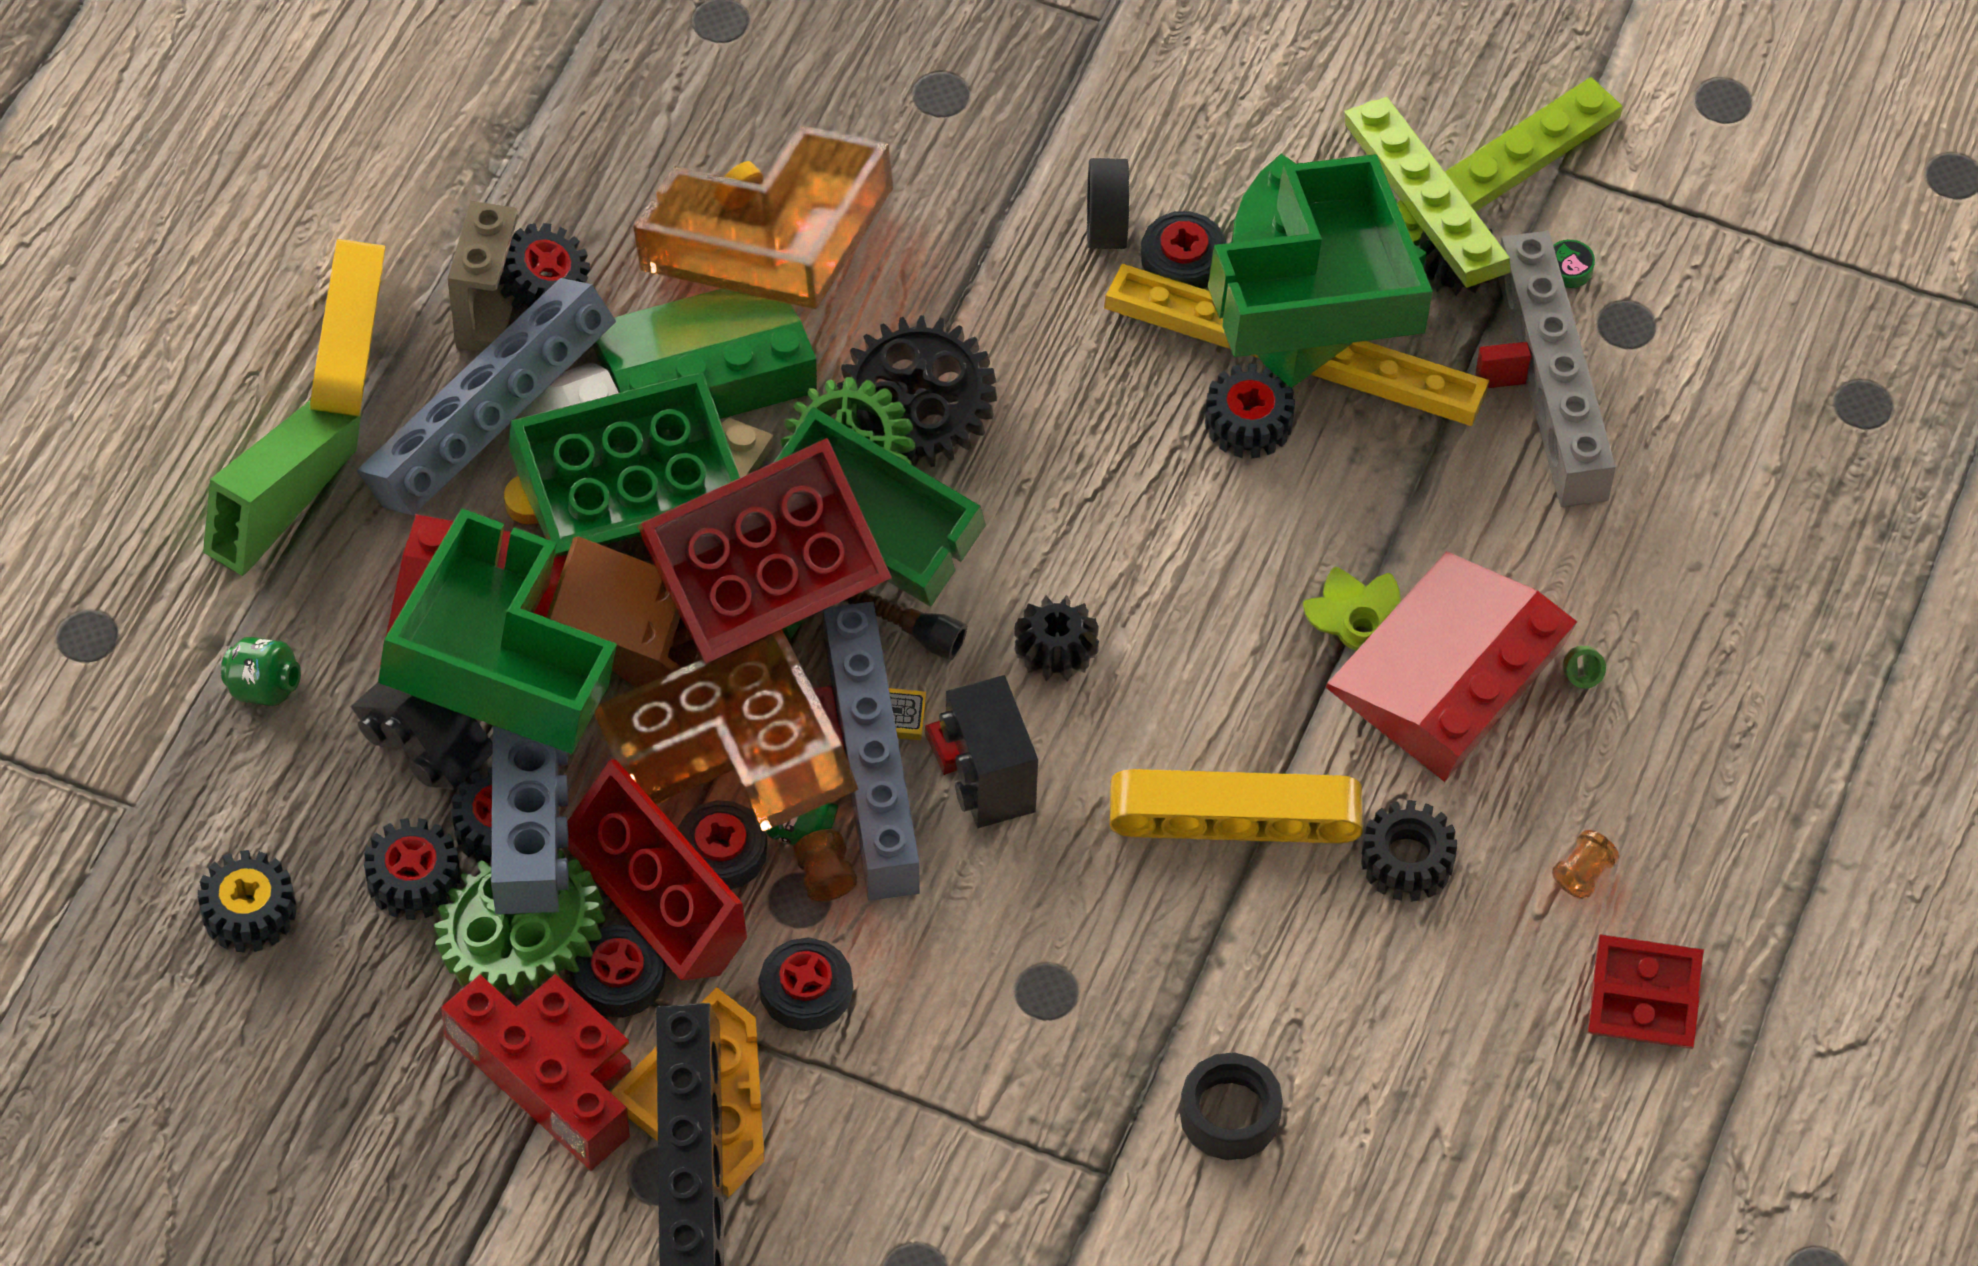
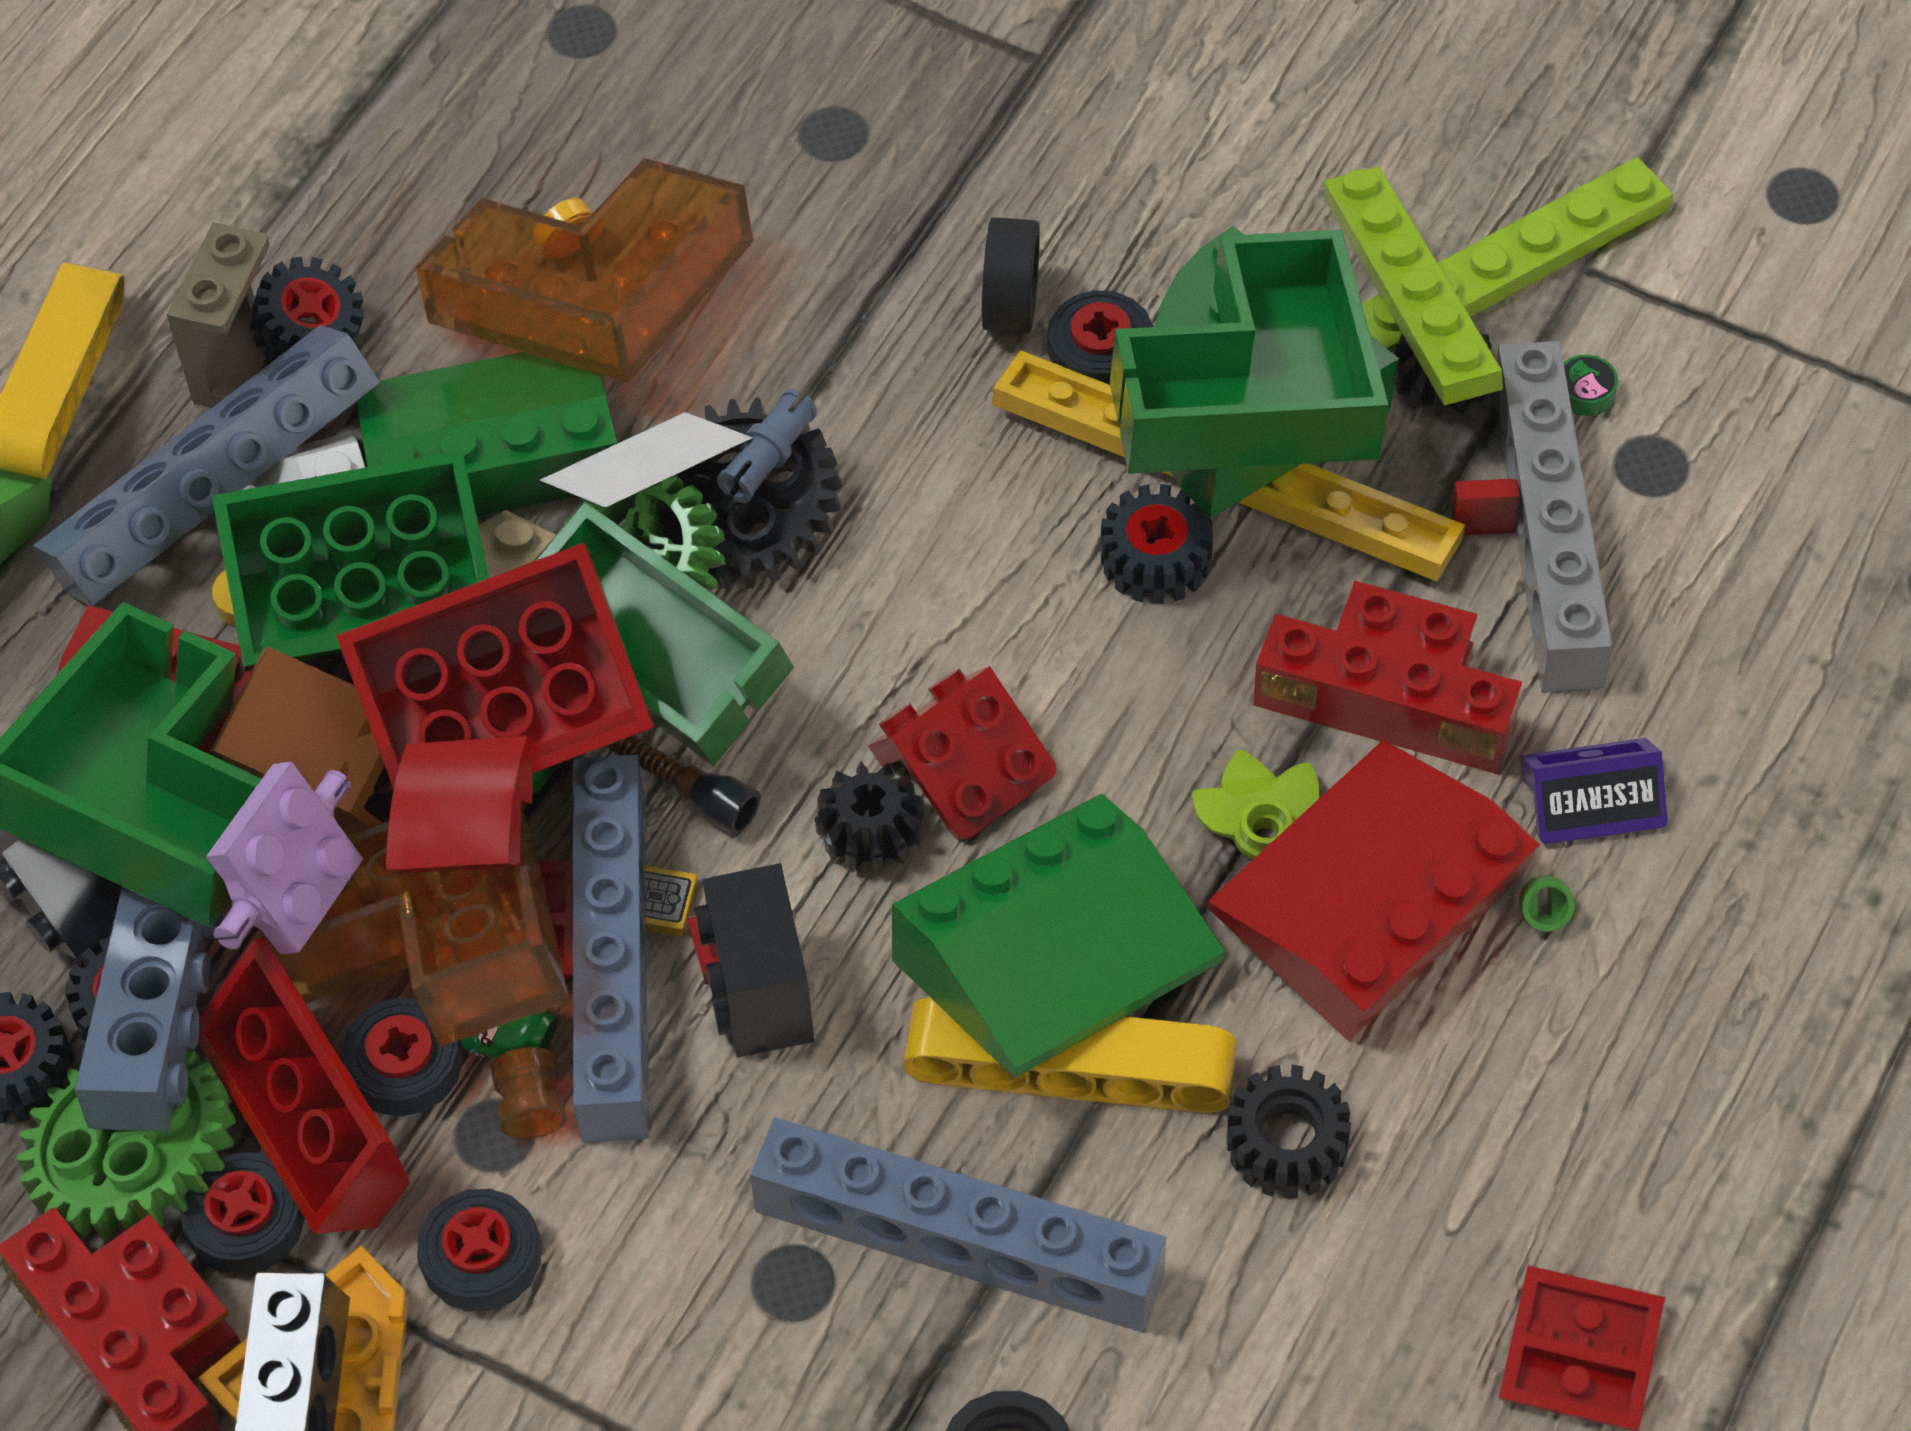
camera: 10 degrees right, 0 degrees up
(626, 697) = (284, 859): none -> lavender plate
(754, 647) = (459, 805): none -> red slope
(845, 369) = (645, 459): none -> white sticker
(938, 352) = (768, 446): none -> sand blue pin
(1124, 580) = (967, 750): none -> red bracket
(1169, 936) = (959, 1224): none -> sand blue brick
(1214, 716) = (1053, 935): none -> green slope
(1447, 502) = (1391, 676): none -> red piece
(1585, 864) = (1519, 1167): clear orange bush -> none
(1612, 578) = (1596, 790): none -> panel

